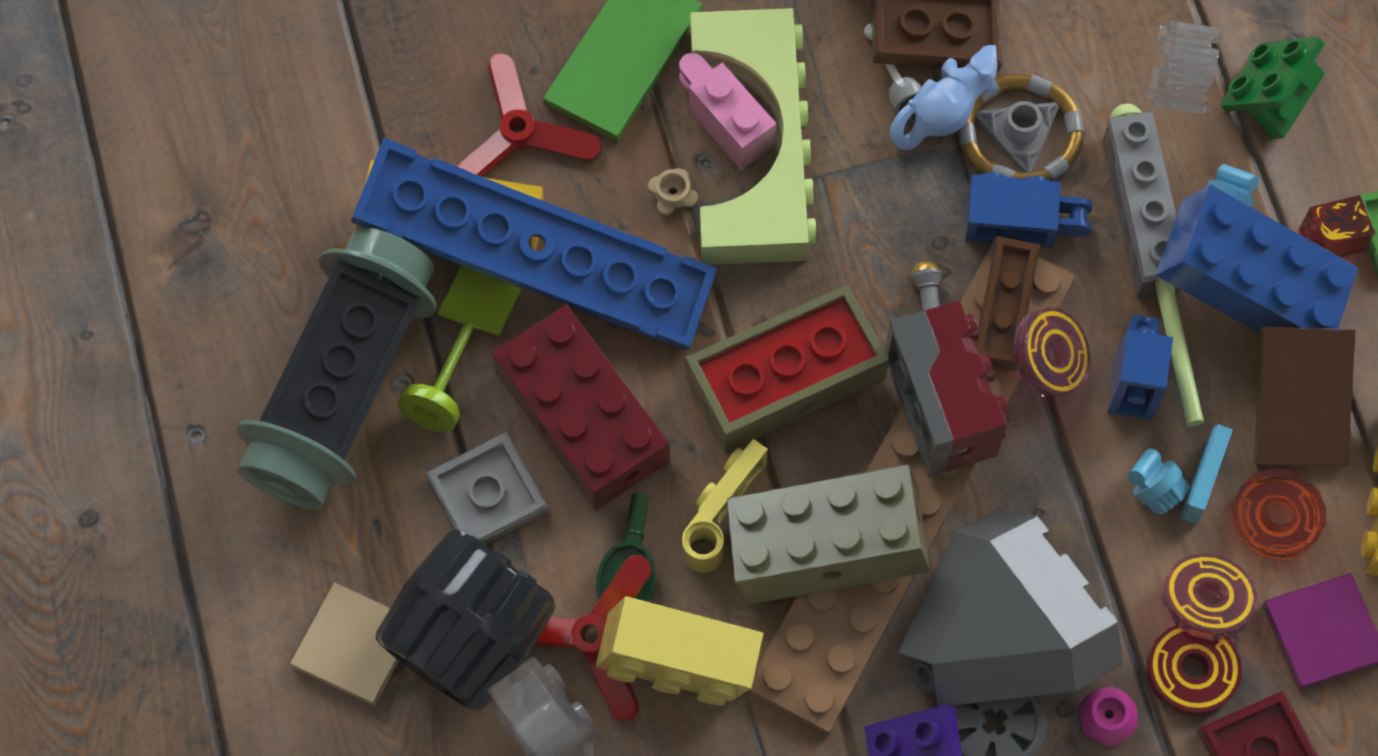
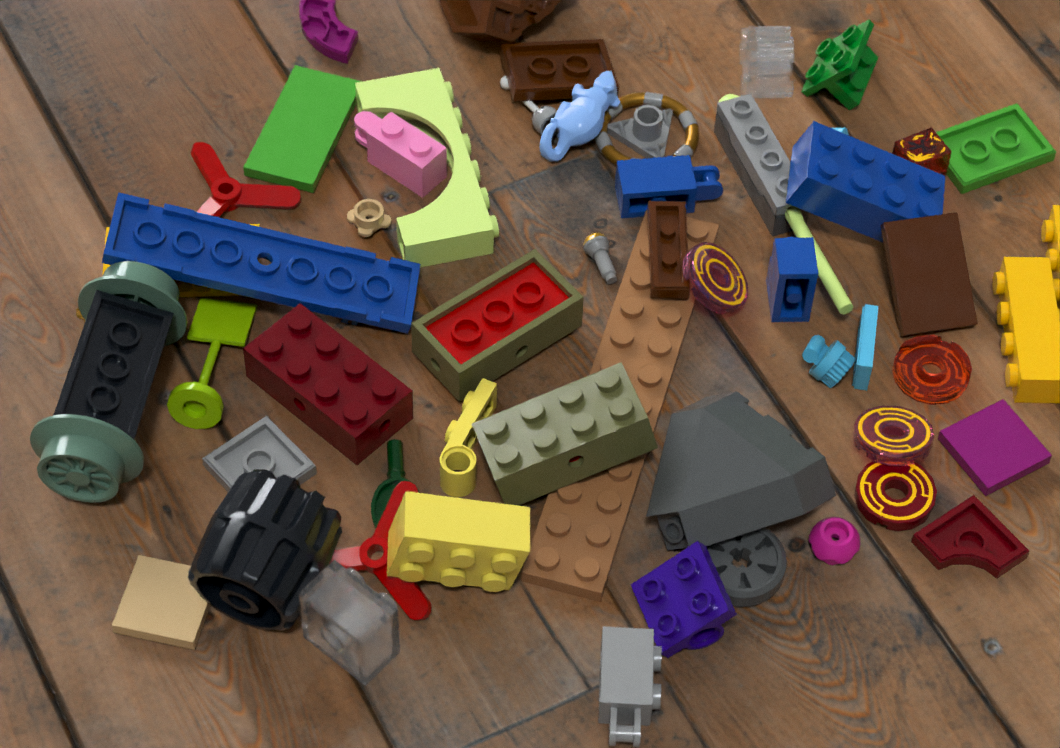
camera: 15 degrees left, 15 degrees down
(946, 387) = (636, 308): piece -> none

